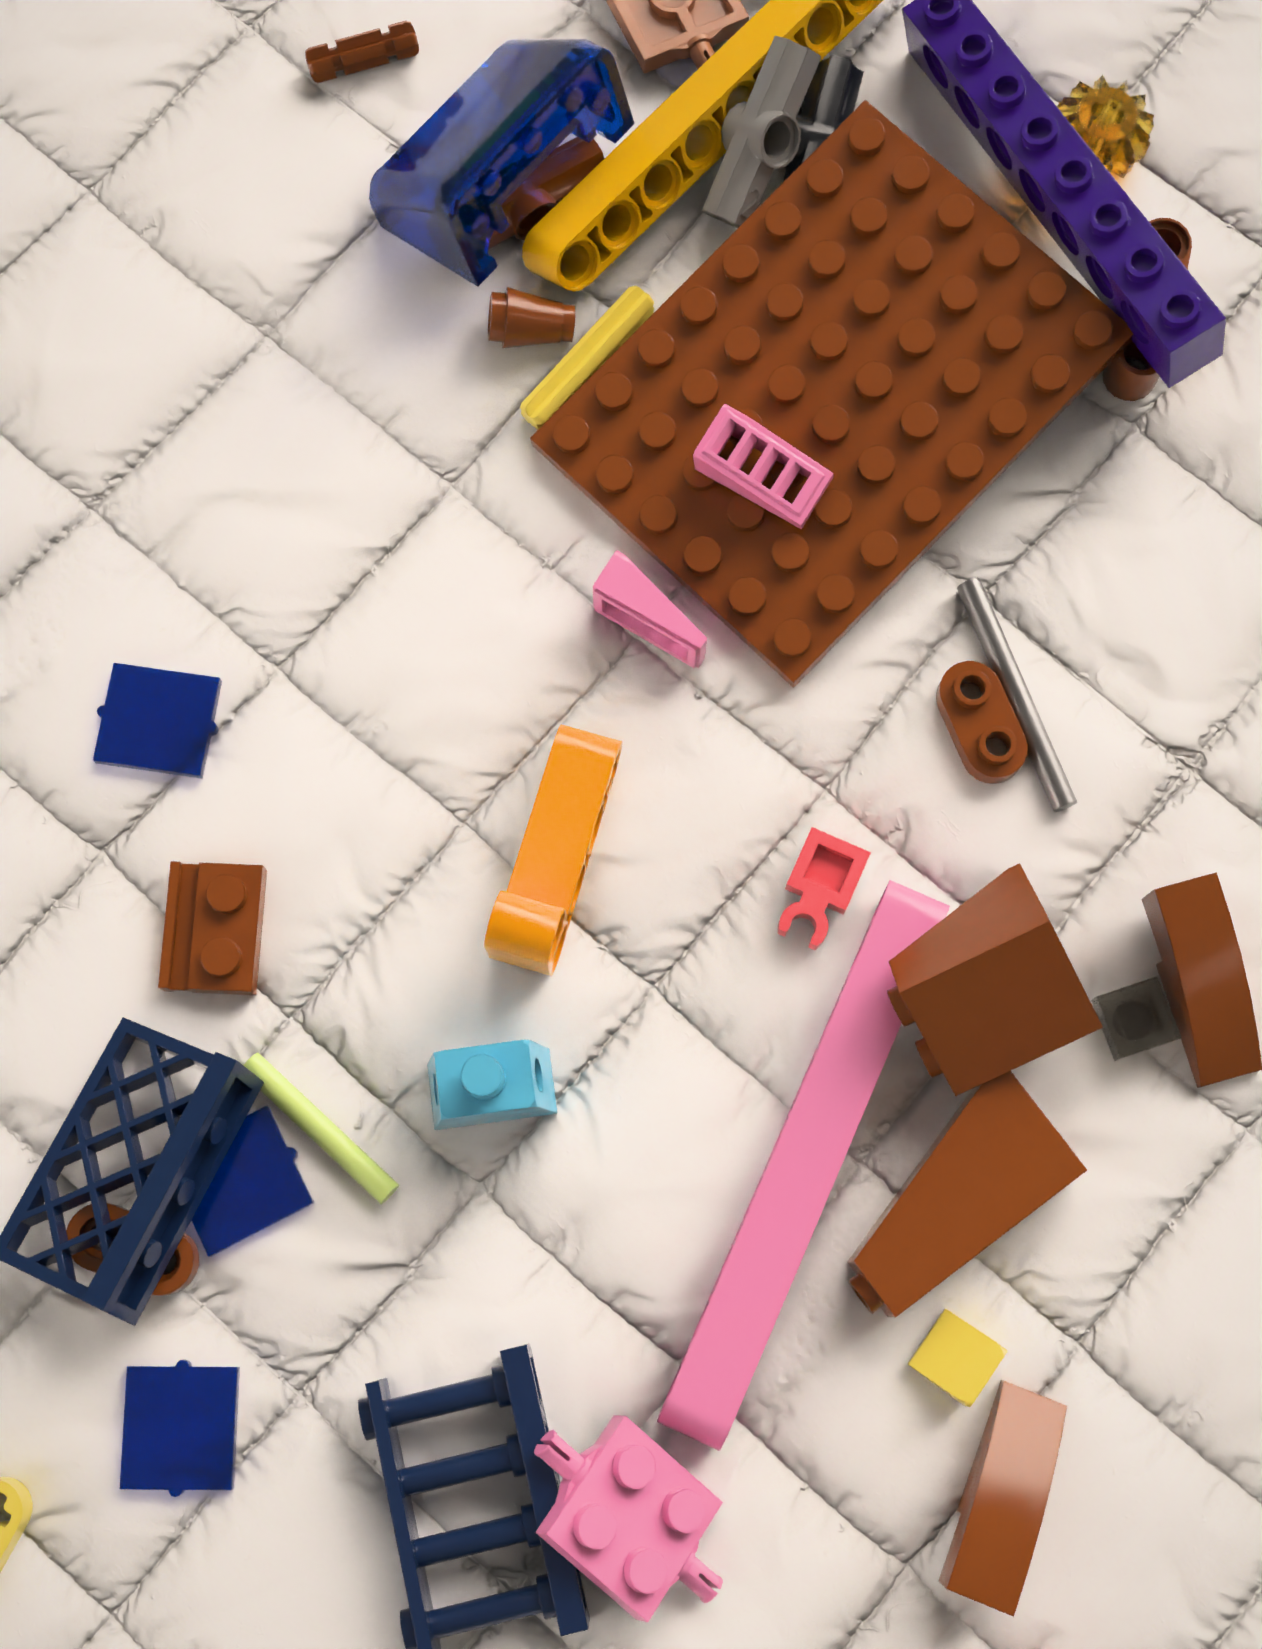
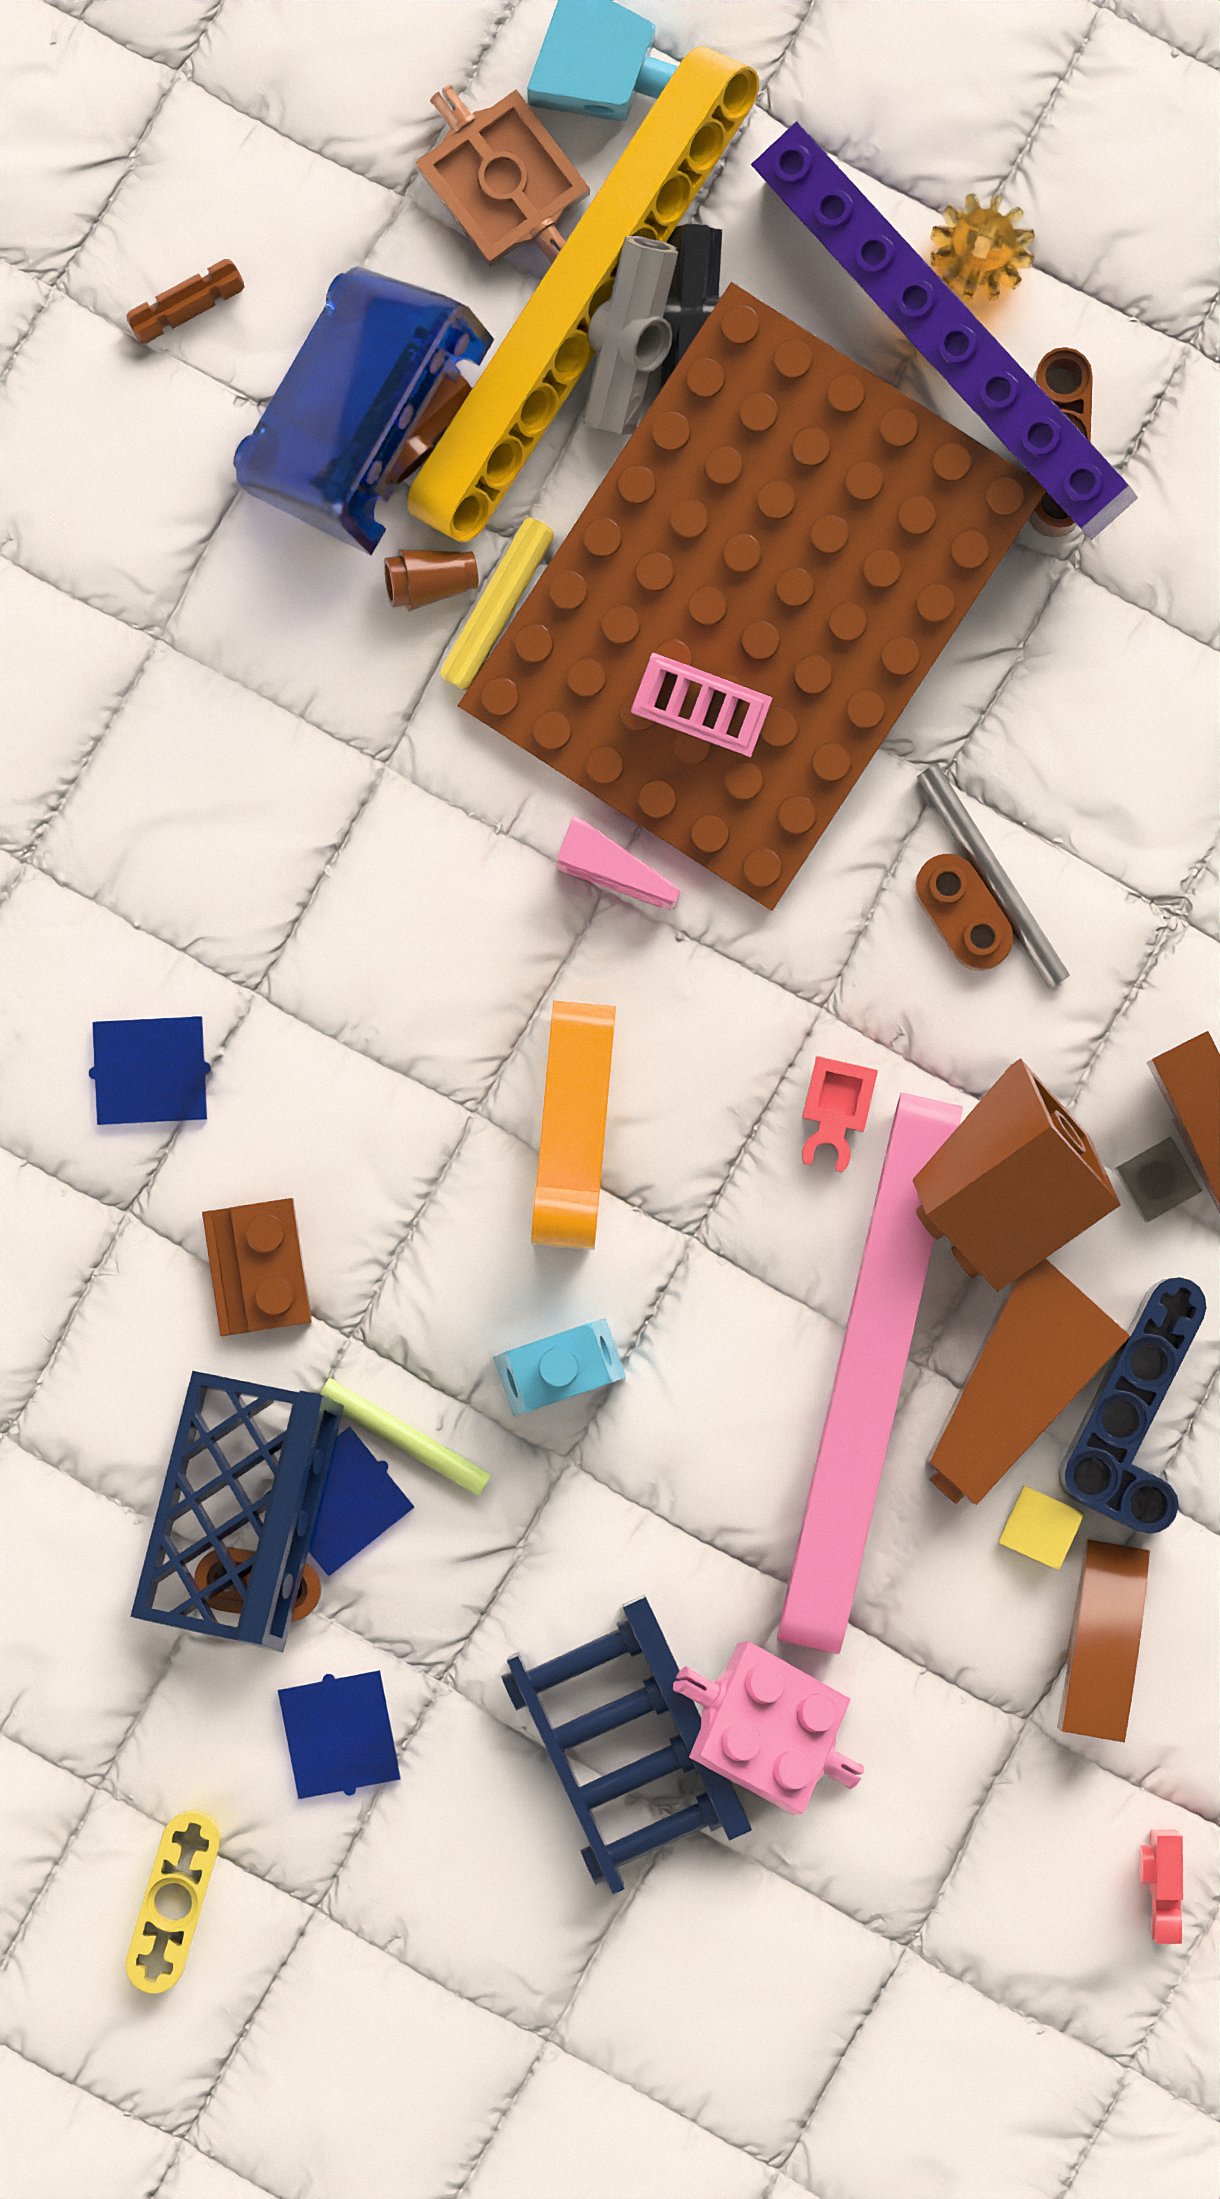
camera: 15 degrees left, 10 degrees up
(1087, 1243) = (1144, 1400): none -> dark blue beam

